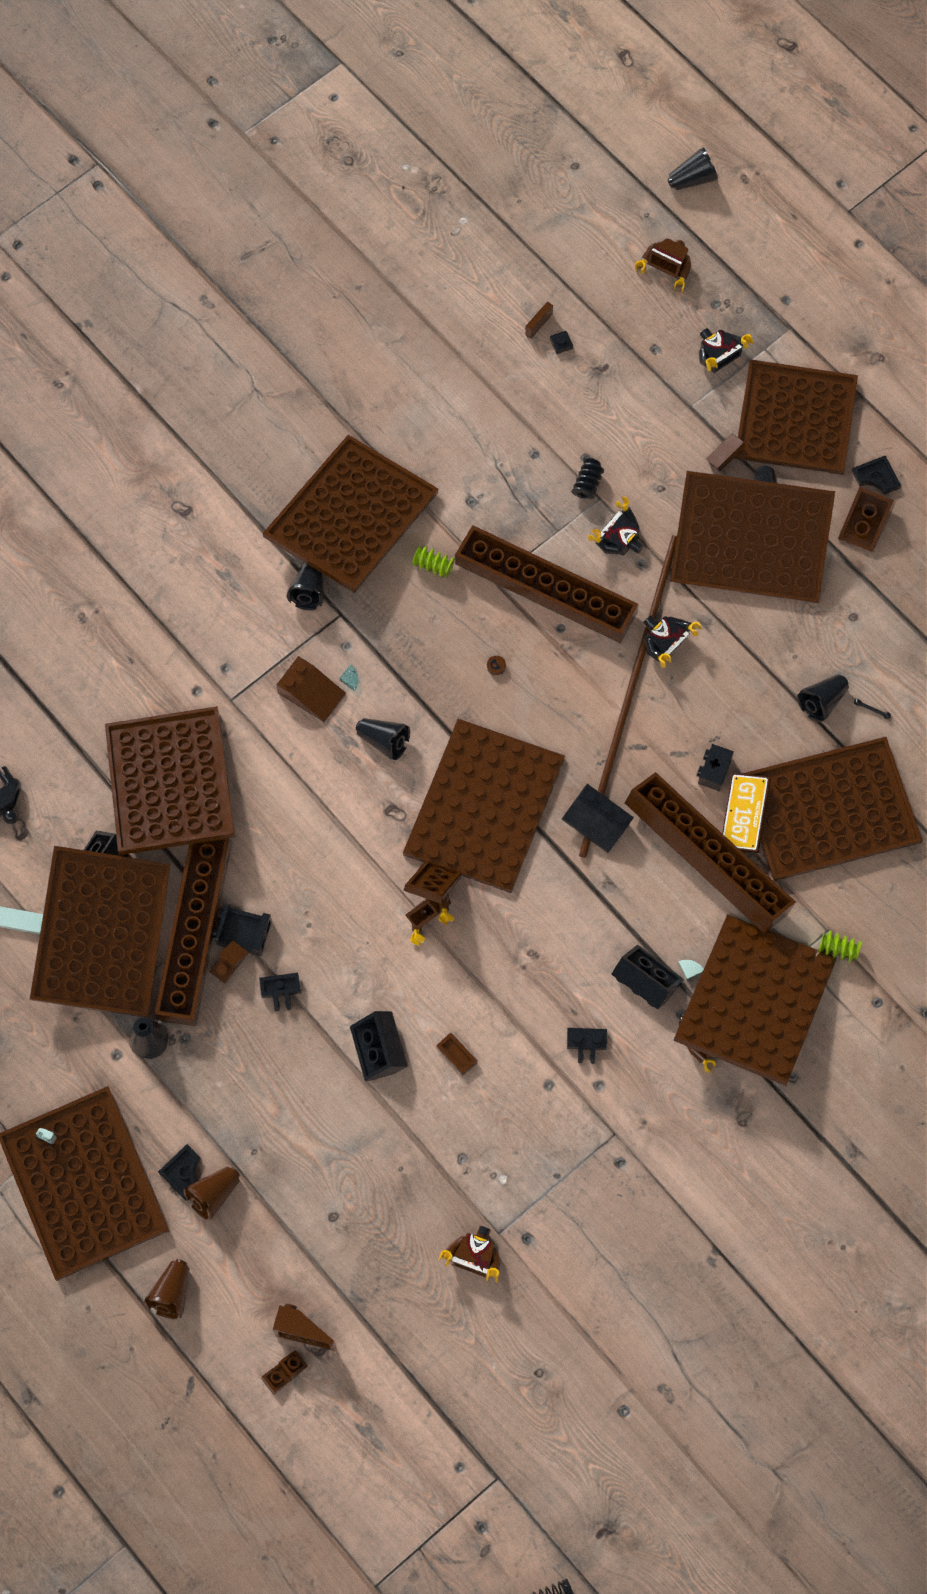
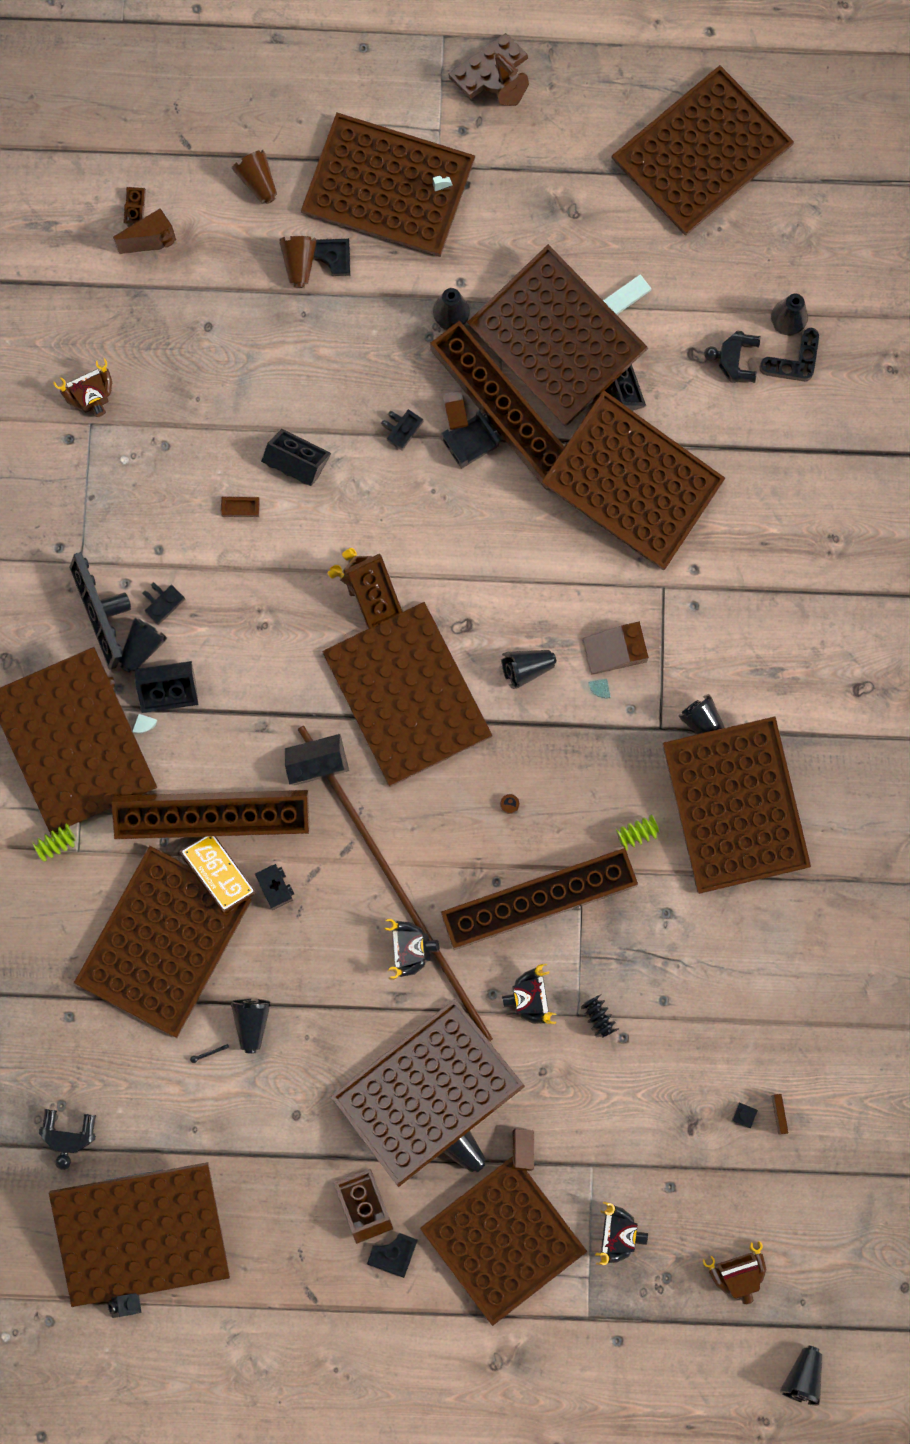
camera: 130 degrees right, 10 degrees up
(634, 1022) = (140, 644): none -> black cone
(639, 1076) = (99, 610): none -> black plate

